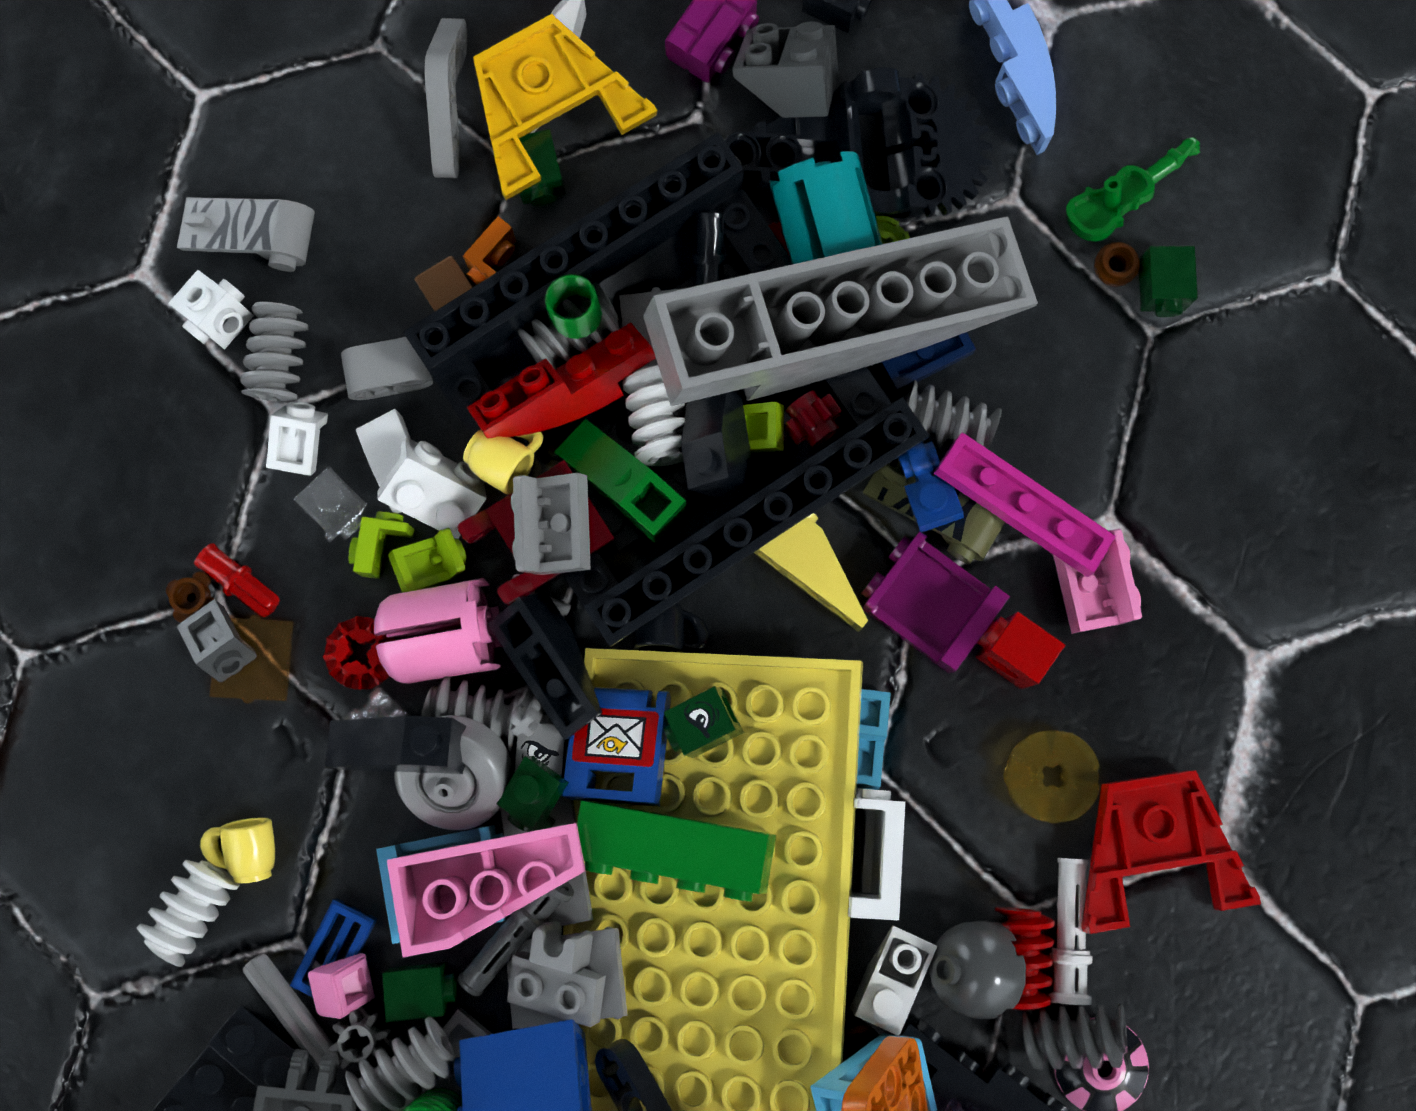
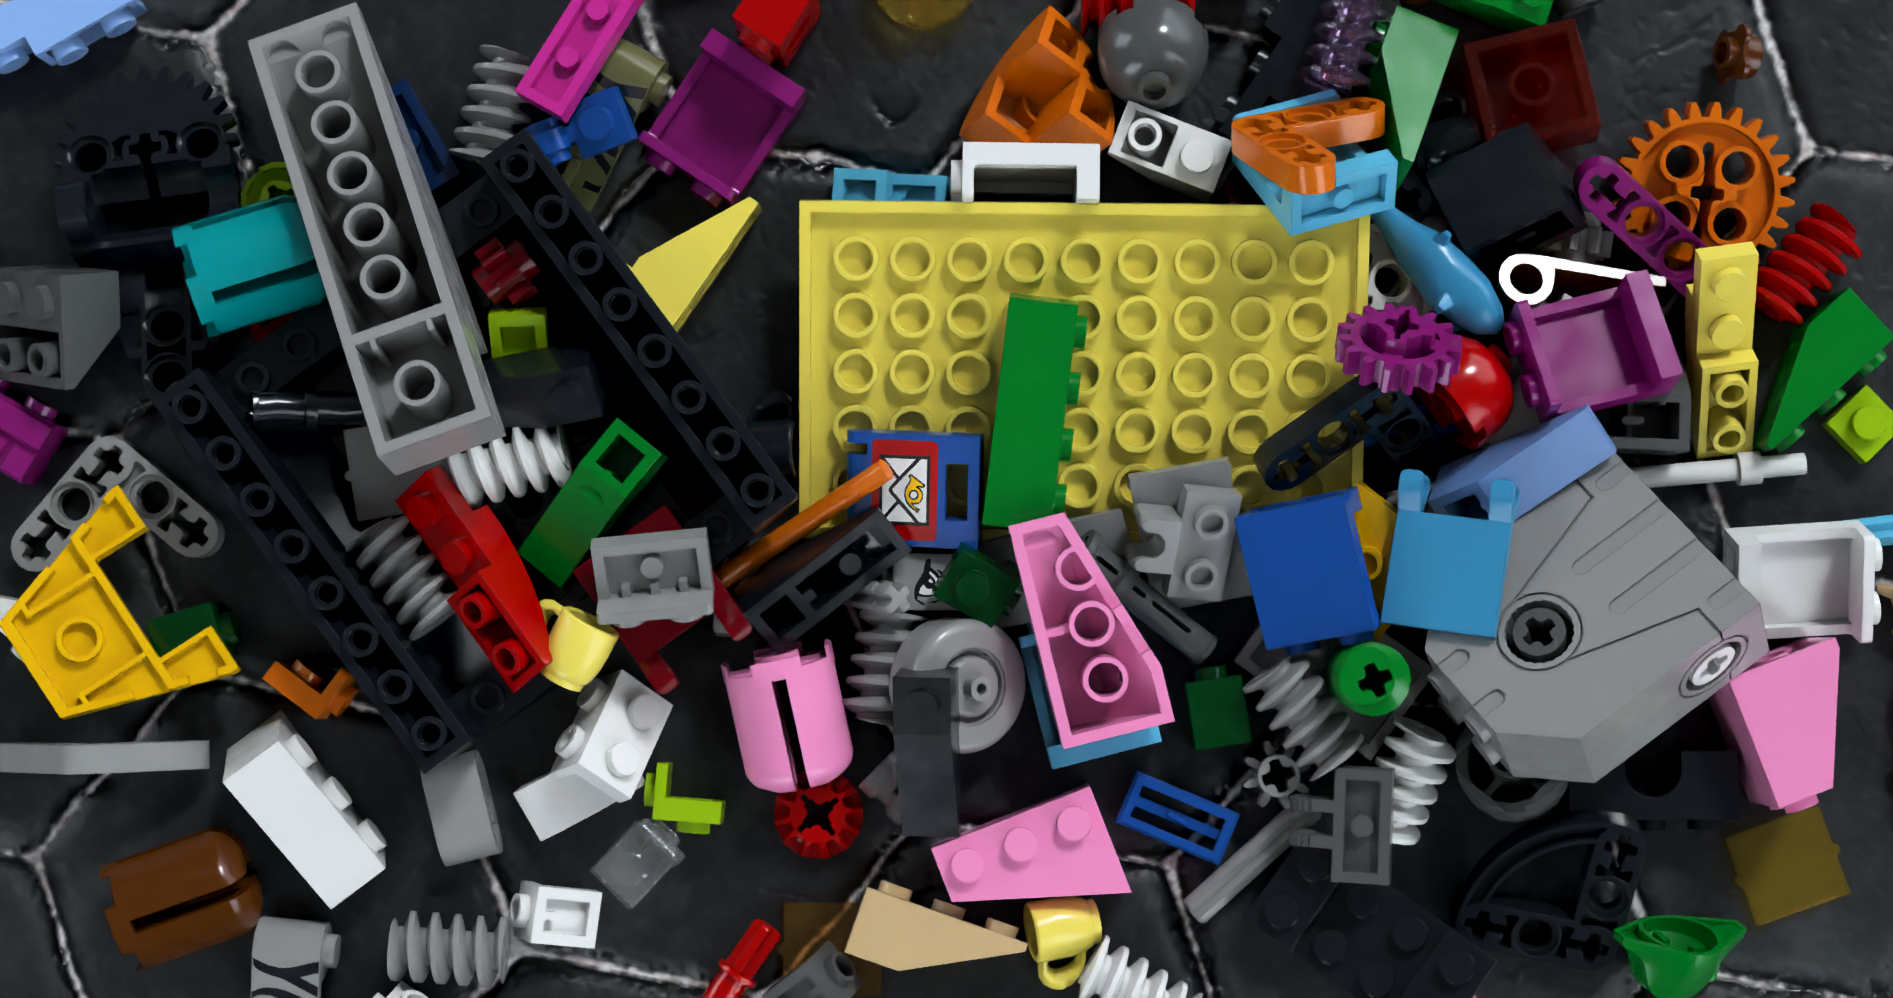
camera: 90 degrees left, 5 degrees up
(250, 728) = (912, 936): none -> tan slope
(309, 830) = (1034, 853): none -> bright pink wedge
(331, 147) = (182, 896): none -> reddish brown cylinder
(341, 986) = (1215, 802): bright pink slope -> none
(393, 244) = (304, 810): none -> white wedge
(429, 562) = (703, 736): lime bracket -> none
(443, 283) = (356, 741): medium nougat slope -> none
(570, 286) = (356, 566): green piece -> none
(594, 651) = (804, 523): none -> orange bar
(670, 131) = (135, 475): none -> light grey beam
(701, 723) = (883, 386): dark green brick -> none
(947, 872) = (1043, 91): none -> orange brick

